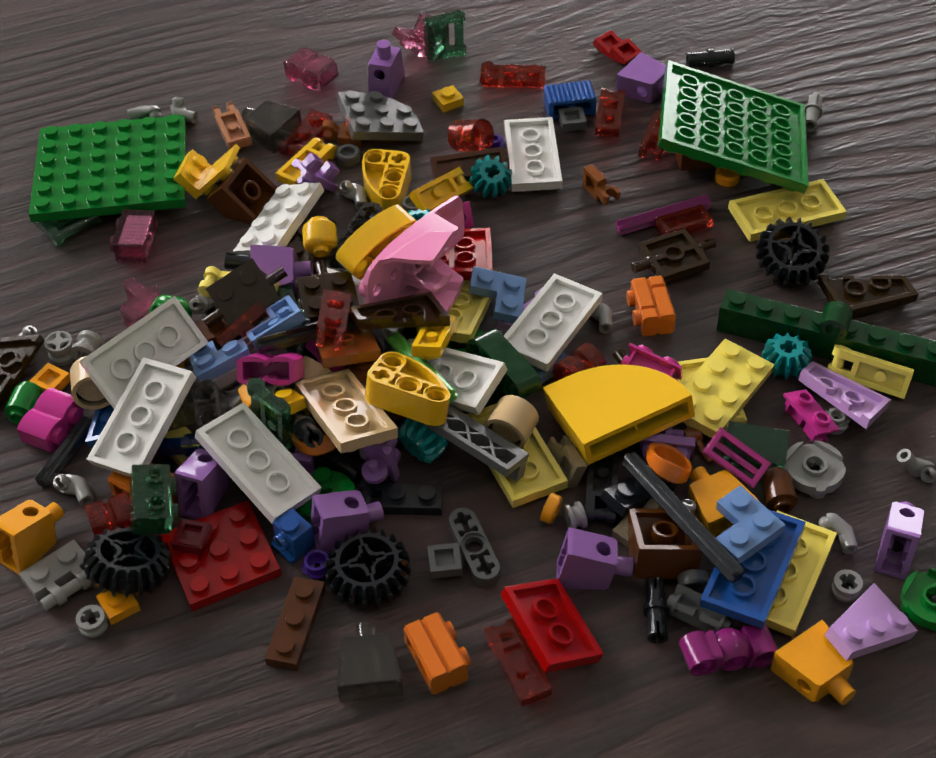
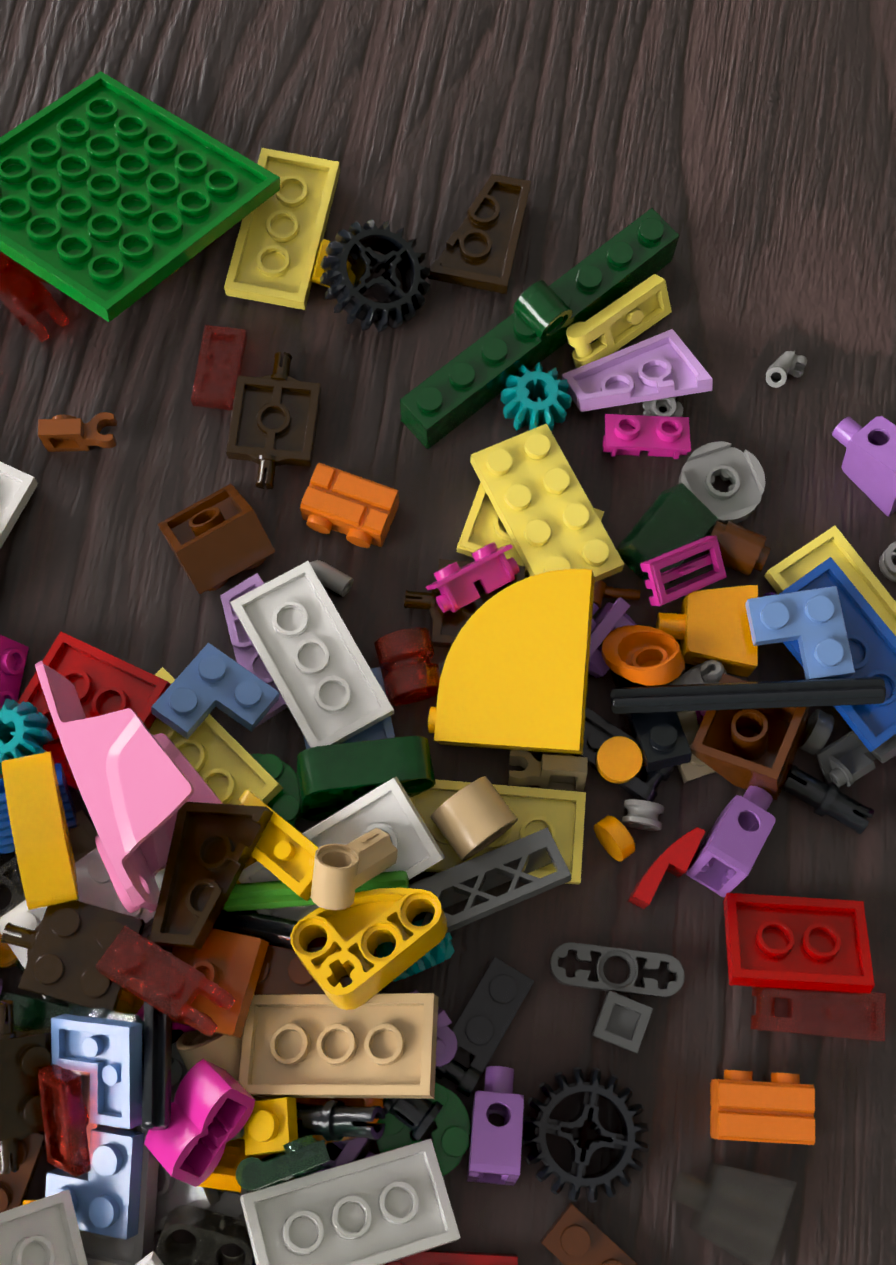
camera: 65 degrees left, 25 degrees up
(292, 536) = (479, 1216): blue brick -> none
(312, 559) = (535, 1213): dark purple plate -> none
(333, 471) = (414, 1113): none -> black bush
(435, 352) = (344, 868): none -> tan piece
(542, 536) = (673, 860): none -> red slope
(586, 262) = (217, 538): none -> reddish brown slope
(595, 481) = (619, 759): none -> light orange tile
(647, 219) = (180, 404): magenta axle -> none
(813, 111) = (117, 66): light grey axle -> none
(843, 529) = (824, 513): light grey arm -> none

